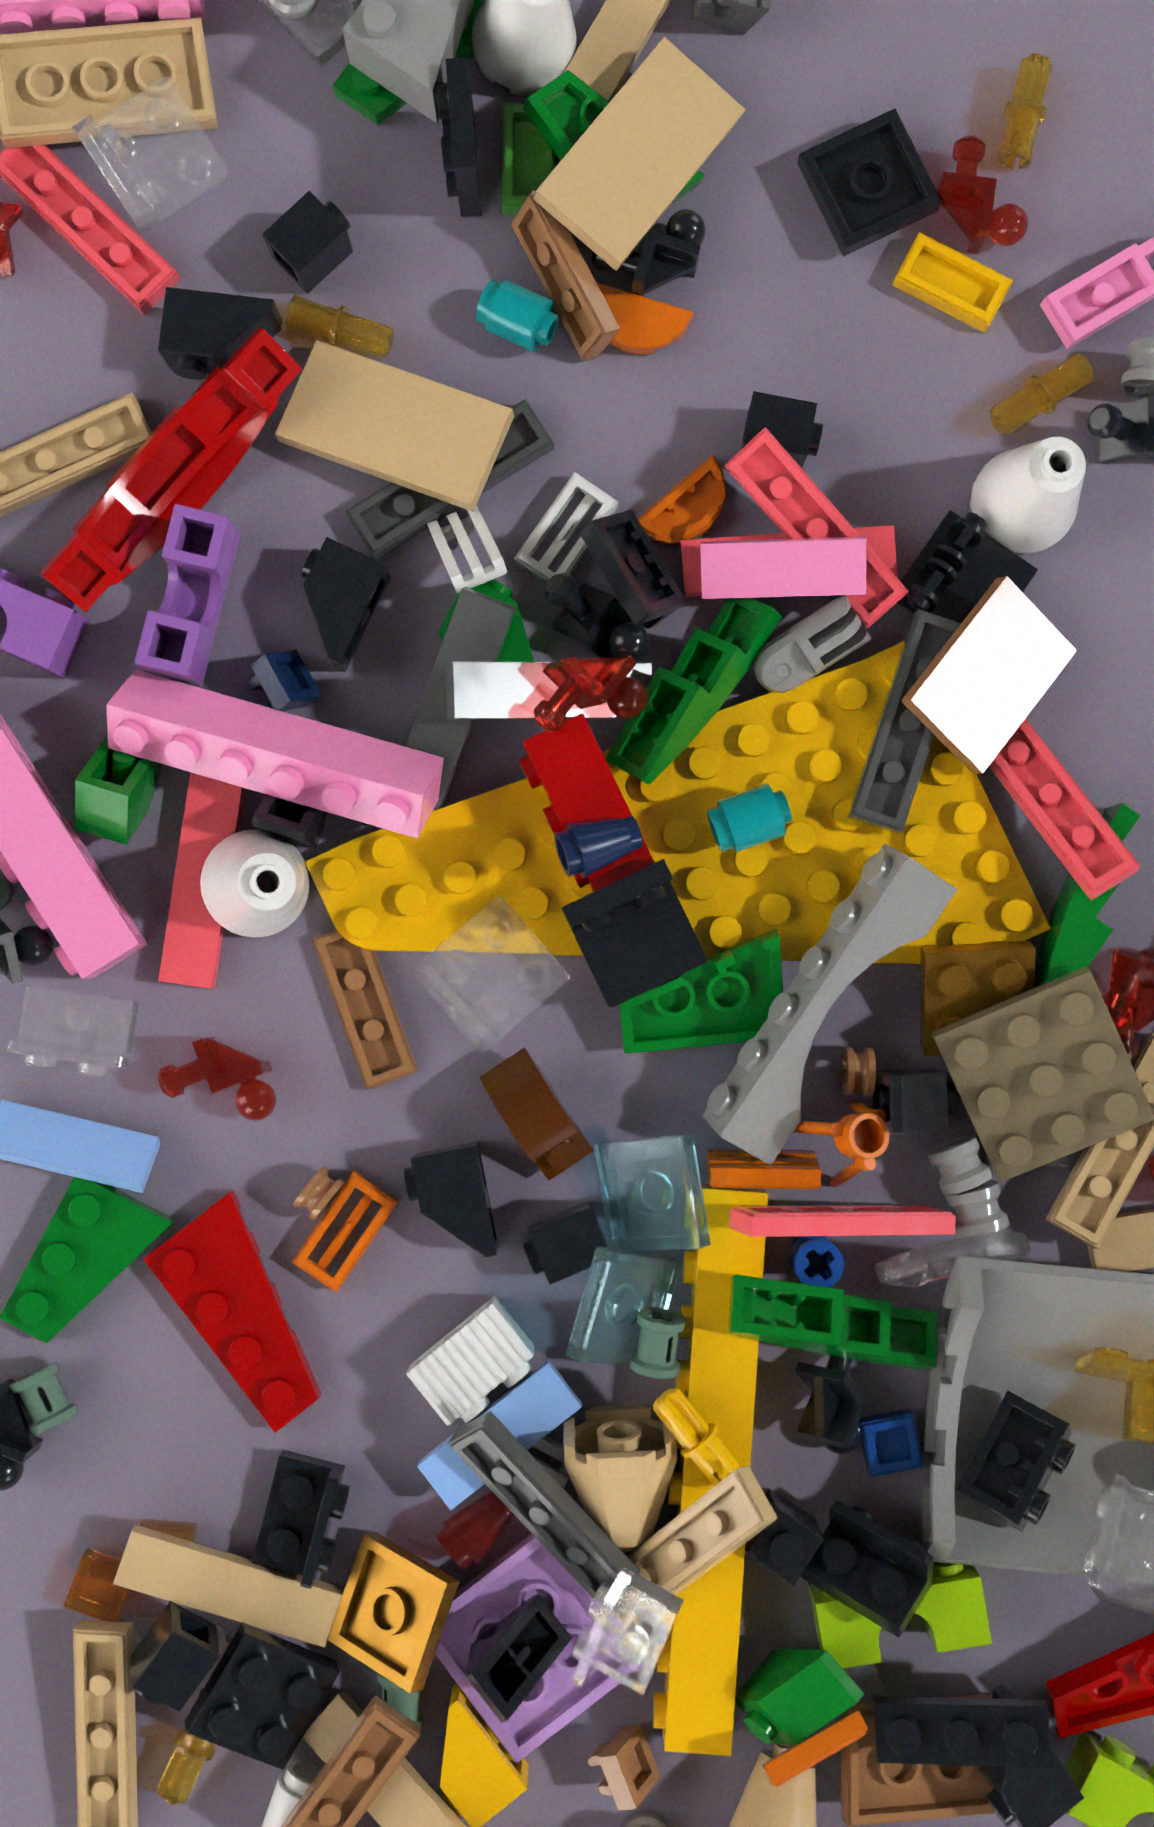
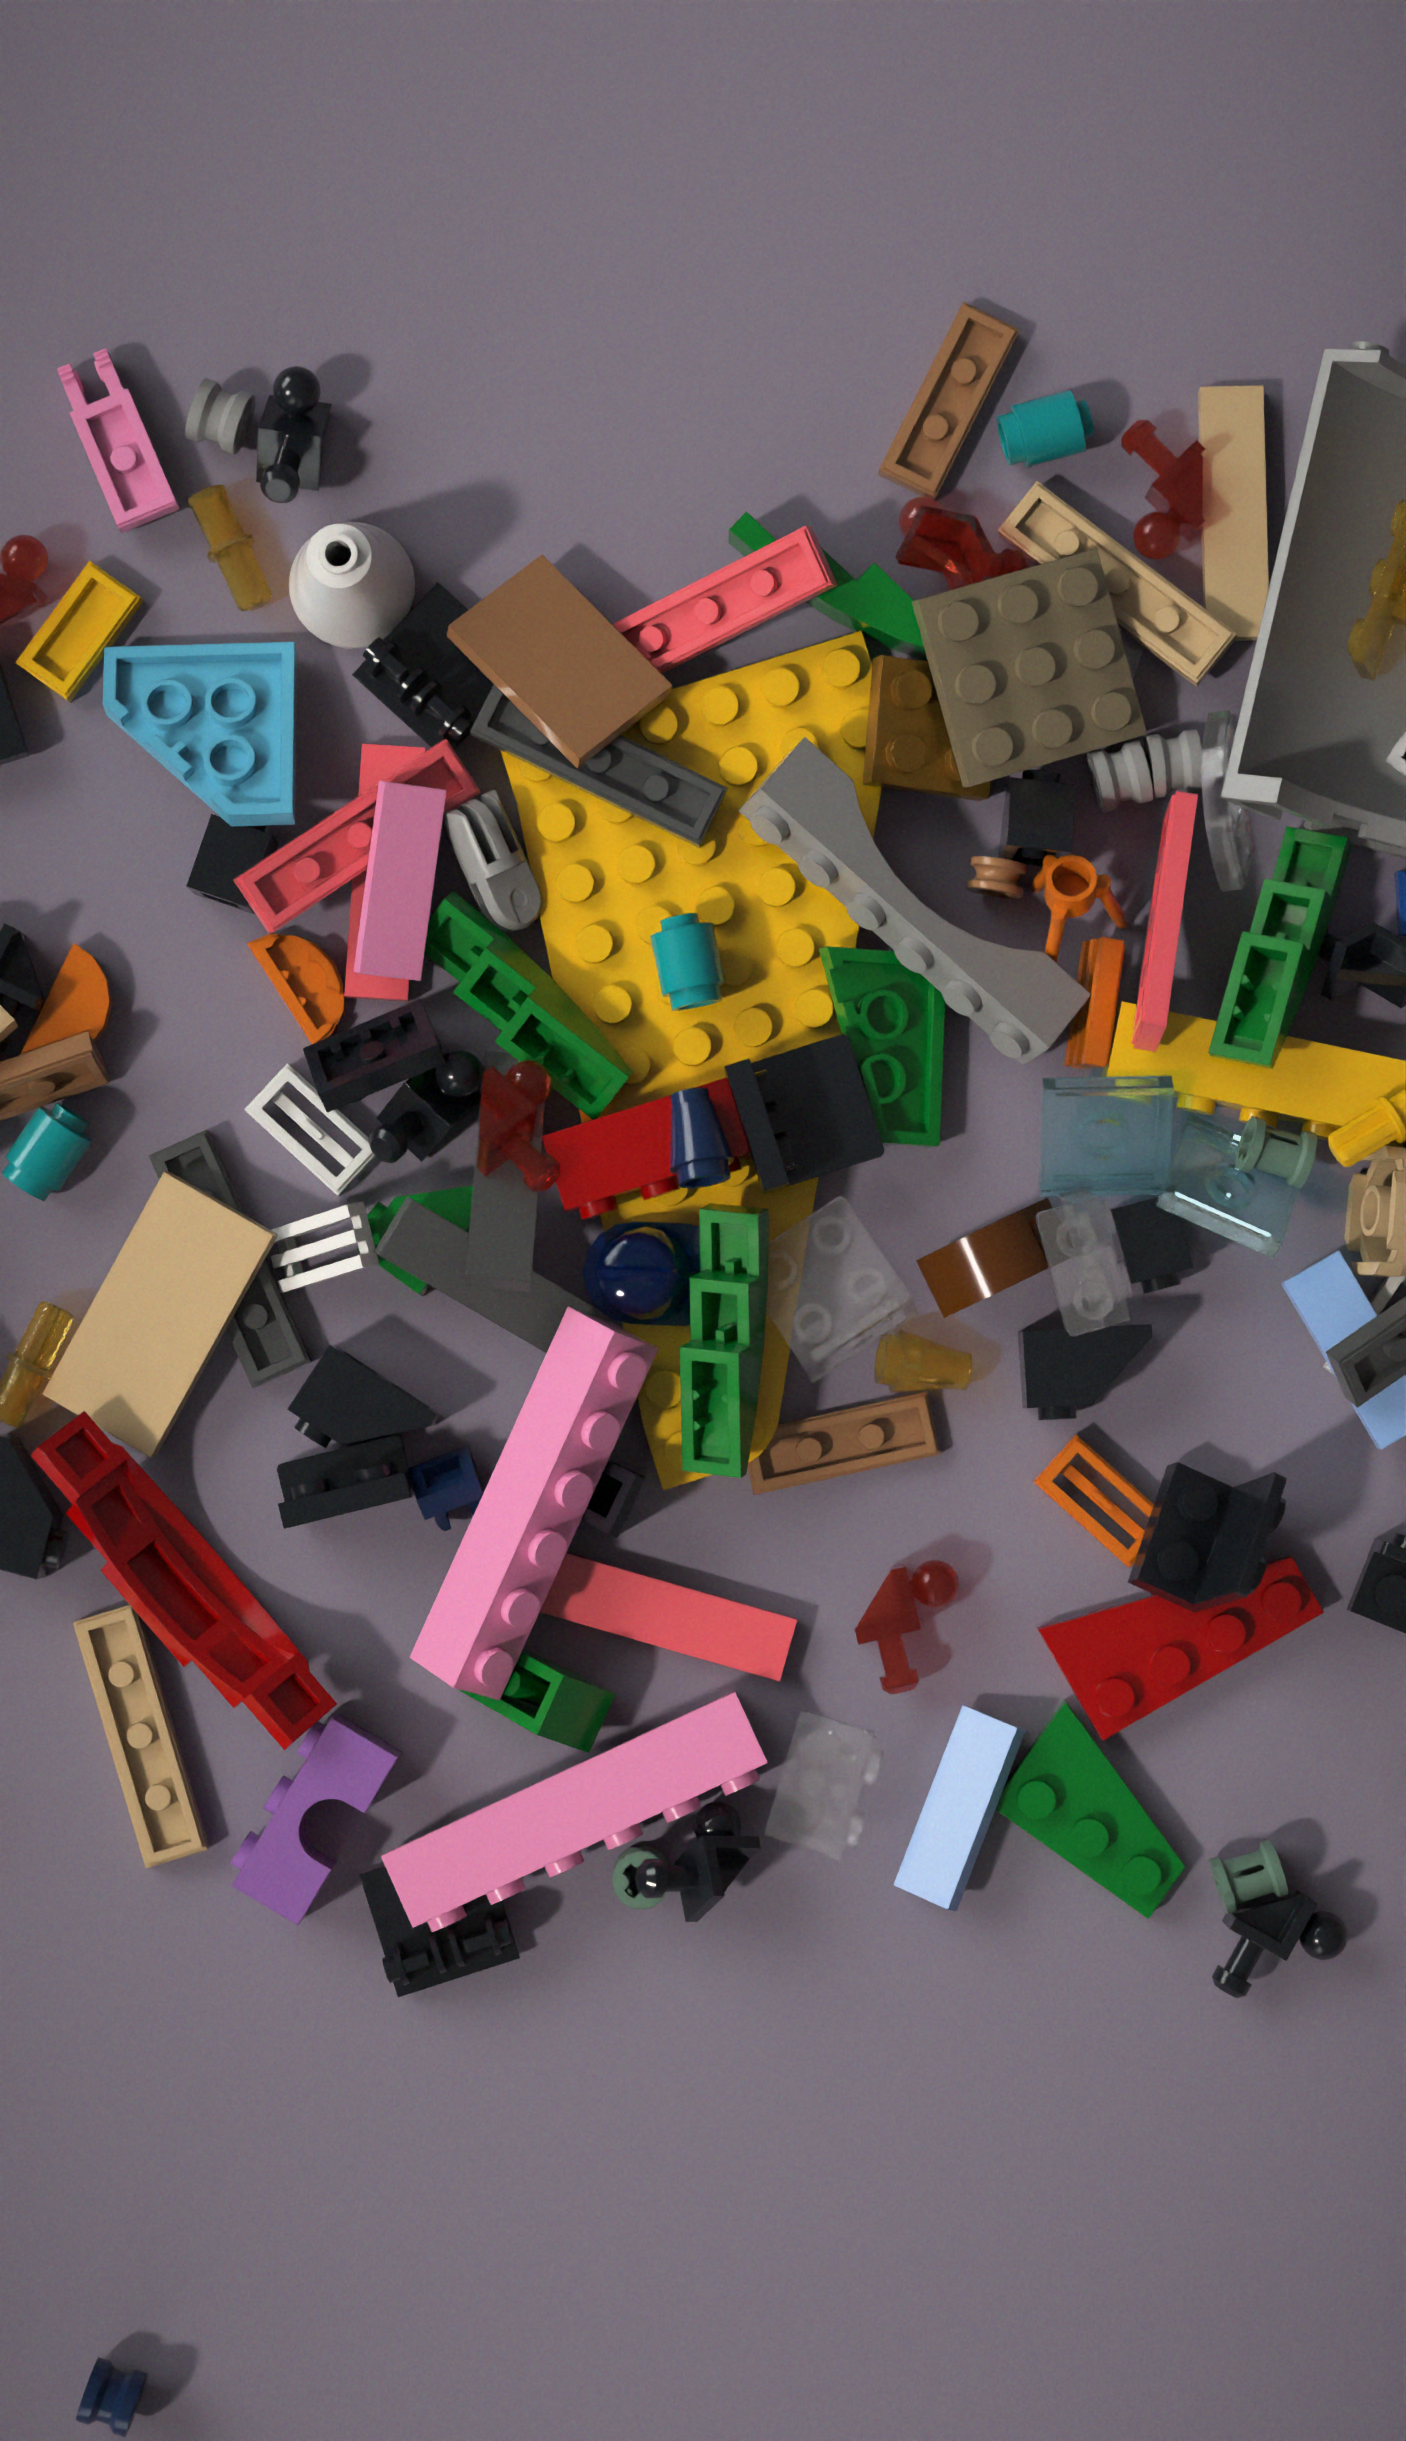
camera: 80 degrees left, 0 degrees up
(199, 564) = (332, 1581): medium lavender arch -> none
(232, 890) = (680, 1551): white cone -> none
(273, 595) = (344, 1481): none -> black bracket
(318, 1193) = (1053, 1524): medium nougat bush -> none
(320, 1330) = (1207, 1538): none -> black bracket
(432, 896) = (727, 1340): none -> green slope
(438, 1062) = (919, 1364): none -> clear yellow cone
(472, 1362) = (1272, 1370): white brick -> none
(484, 833) = (644, 1272): none -> clear blue piece
(539, 1189) = (1082, 1264): none -> clear bracket
(831, 1257) = (1209, 938): blue bush -> none
(895, 398) = (214, 721): none -> medium azure plate

